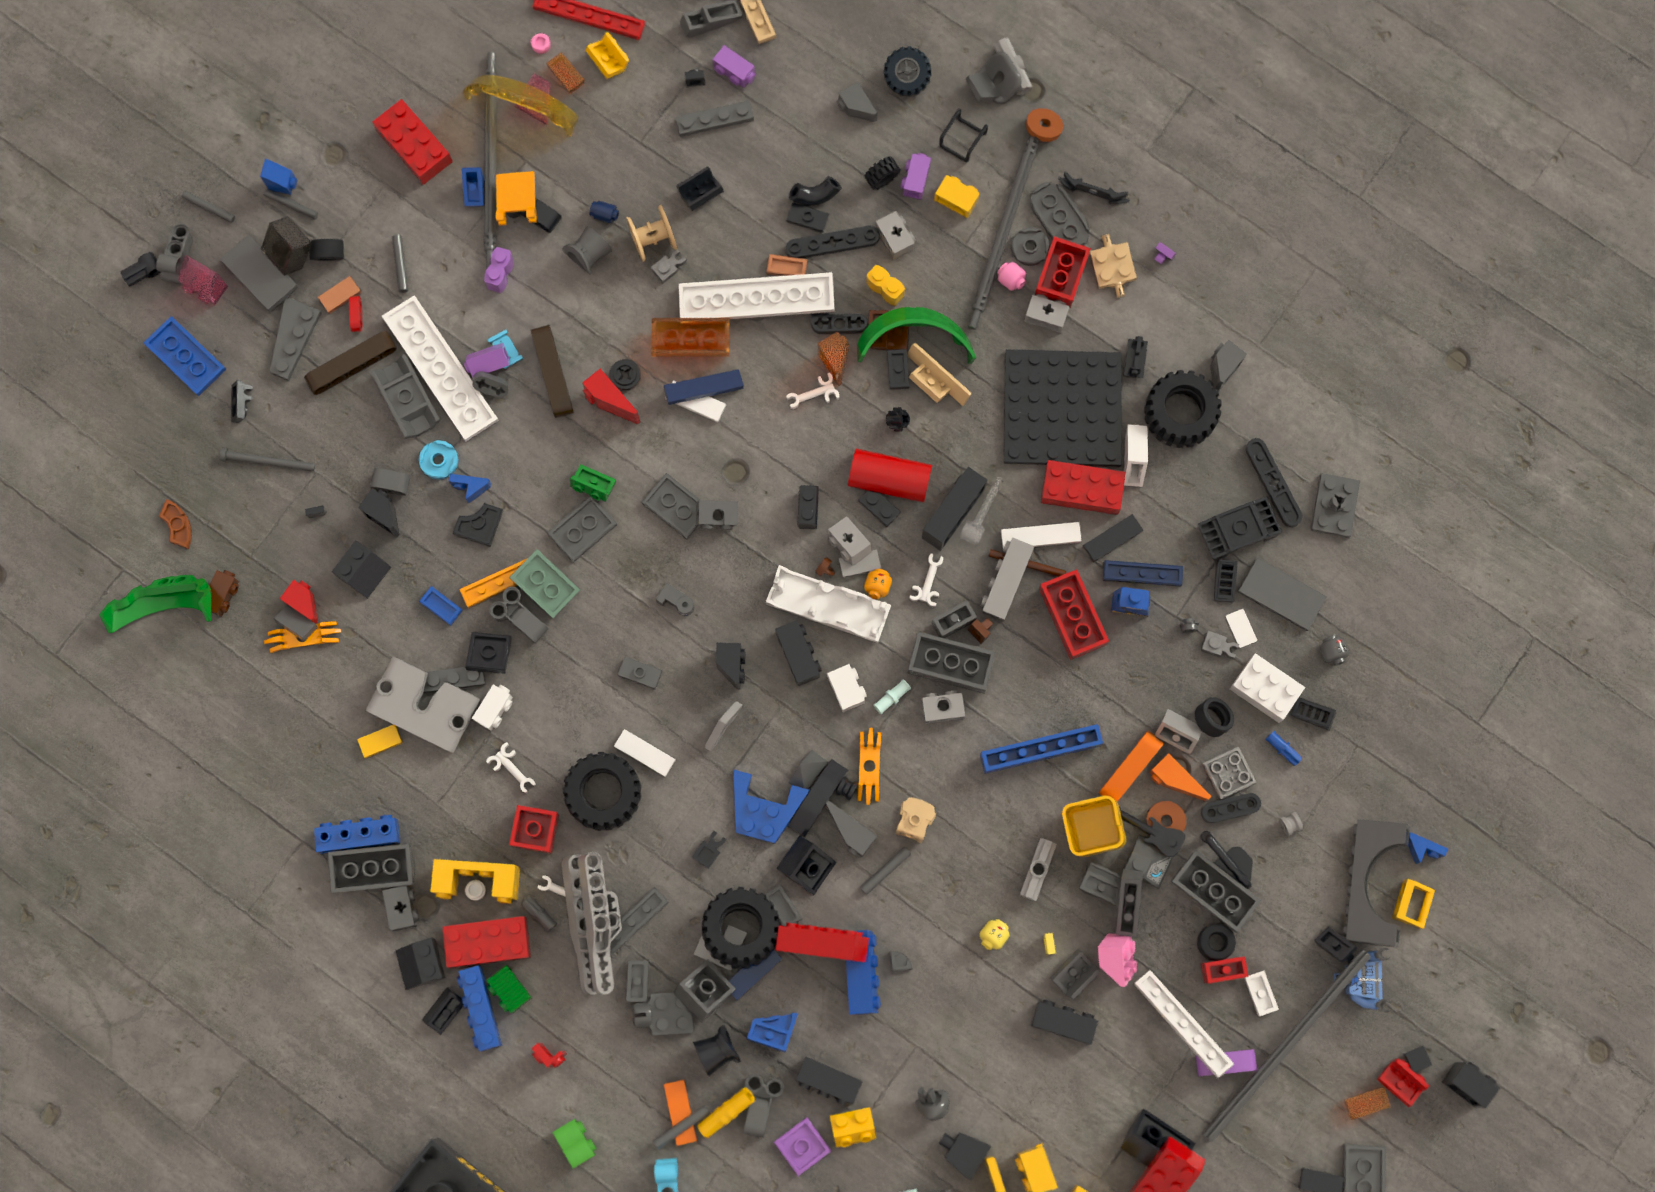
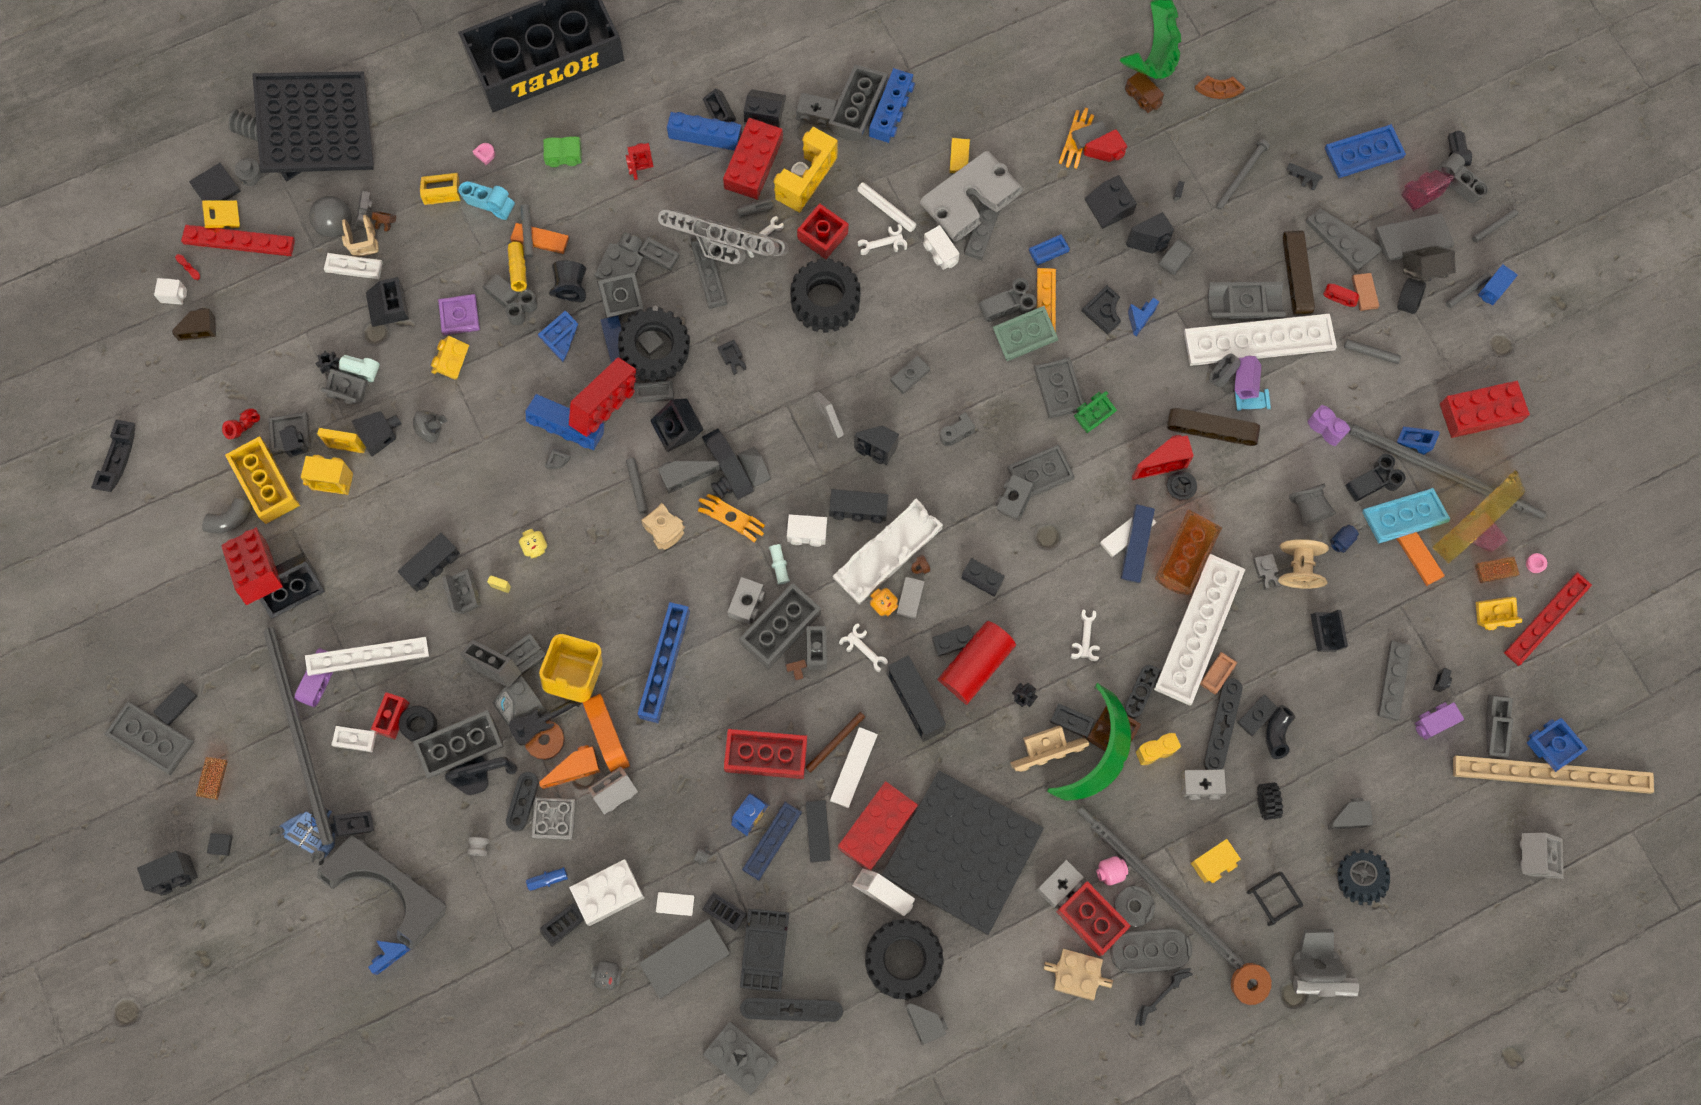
camera: 115 degrees right, 5 degrees down
(442, 470) = (1175, 313): medium azure tile -> none
(472, 784) = (887, 207): none -> white axle
(488, 652) = (989, 265): black tile -> none
(508, 989) = (707, 158): green brick -> none
(515, 194) = (1391, 467): light orange flag -> none
(553, 169) = (1406, 515): none -> medium azure tile
(586, 142) = (1421, 558): none -> orange tile
(644, 753) = (840, 346): white tile -> none
(762, 817) = (737, 408): blue wing -> none
(828, 1081) = (495, 356): black brick -> none
(834, 355) = (1109, 667): clear orange slope -> none
(849, 541) = (925, 601): light grey brick -> none
(917, 175) = (1253, 834): medium lavender brick -> none
(973, 530) = (888, 708): clear piece -> none
(1008, 578) = (829, 714): light grey brick -> none
(1033, 882) = (557, 599): light grey piece -> none
(1117, 958) = (451, 628): bright pink slope -> none
(1135, 357) = (976, 946): black hinge -> none
(1164, 253) = (1067, 1031): medium lavender tile -> none
(1205, 722) = (607, 842): black tyre -> none
(1217, 644) = (672, 871): flat silver plate -> none
(1403, 902) = (364, 920): yellow tile -> none
(1403, 1081) = (207, 817): red bracket -> none

